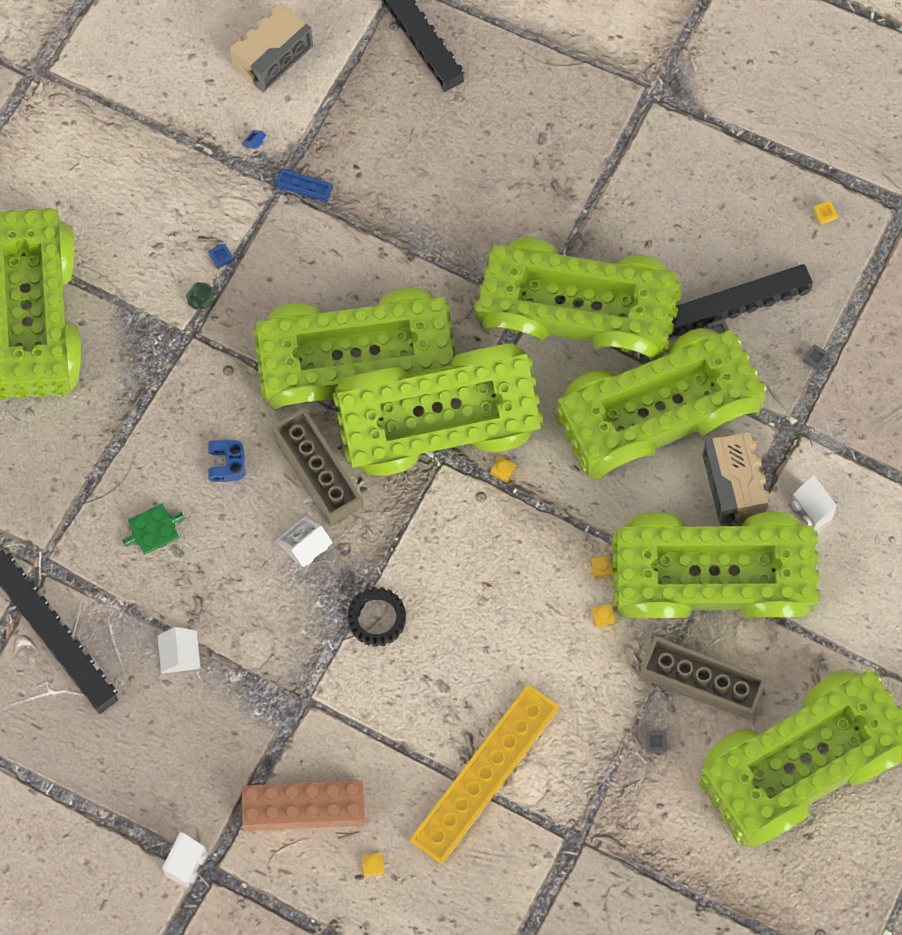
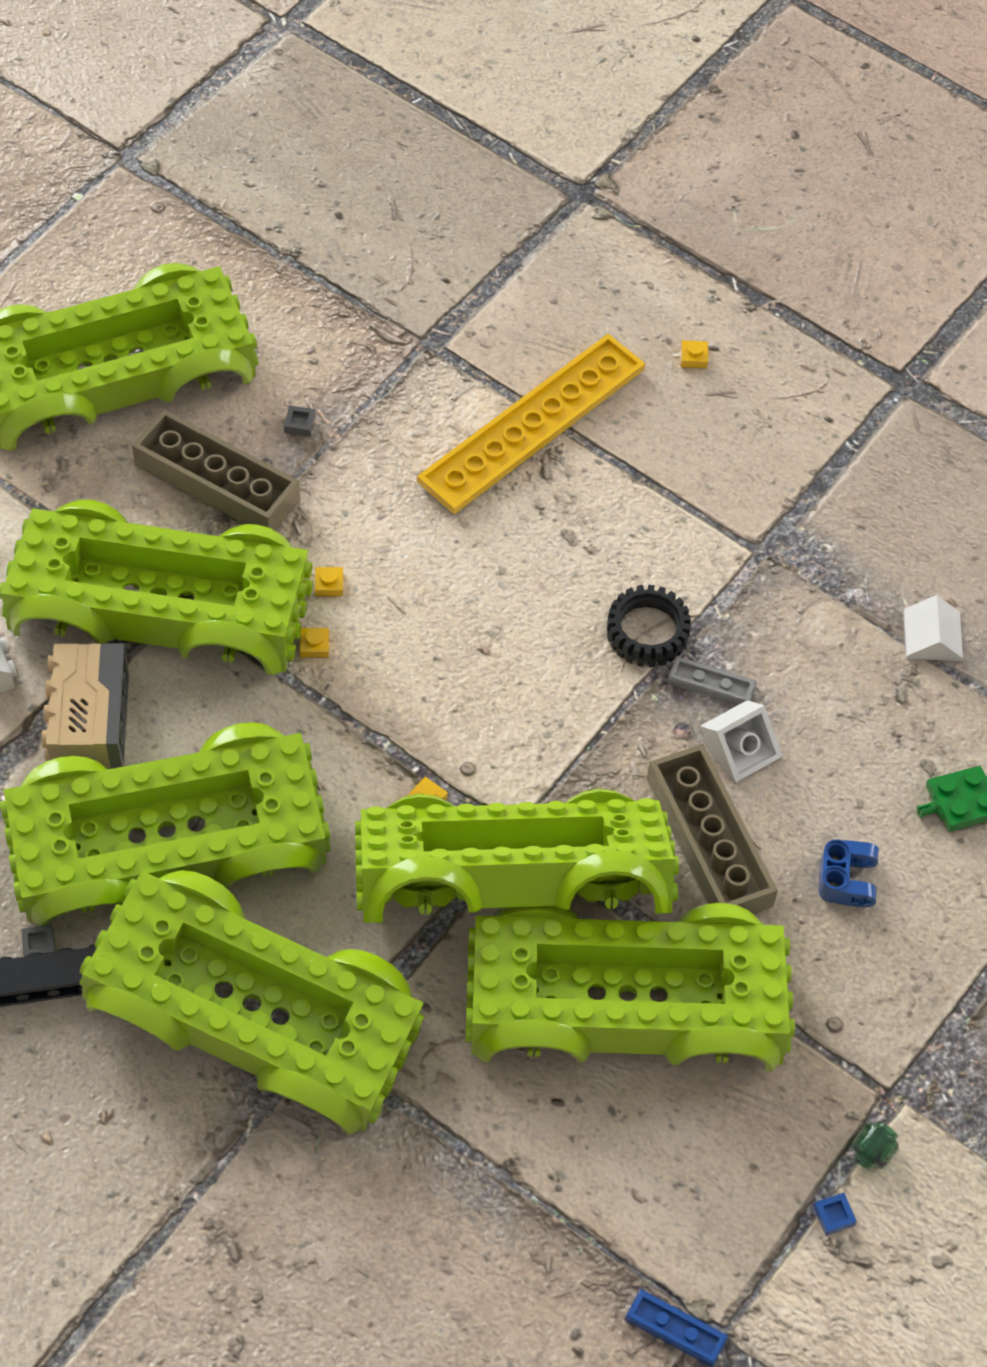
camera: 175 degrees left, 10 degrees down
(184, 860) = (938, 383): white slope -> none
(303, 805) = (778, 420): nougat brick -> none
(328, 586) = (711, 681): none -> light grey tile

